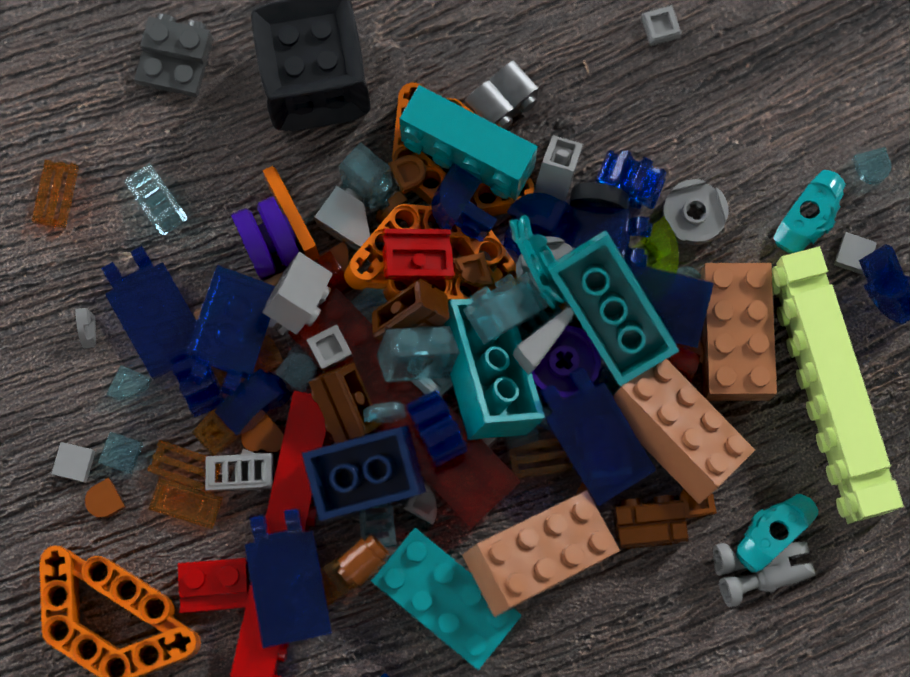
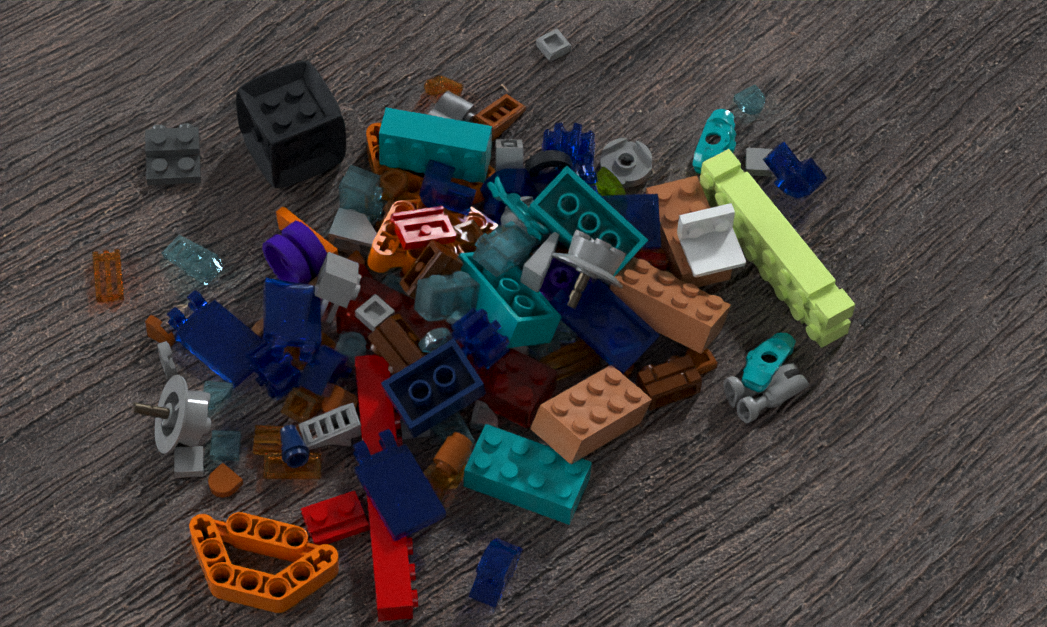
camera: 20 degrees left, 20 degrees down
(72, 411) = (179, 415): none -> light grey piece
(89, 286) = (156, 332): none -> dark orange tile
(189, 486) = (293, 447): none -> dark blue cone
(512, 44) = (442, 84): none -> clear orange arm
(548, 119) = (501, 122): none -> dark orange slope
(596, 371) = (592, 261): none -> light grey piece
(756, 370) = (710, 240): none -> white bracket

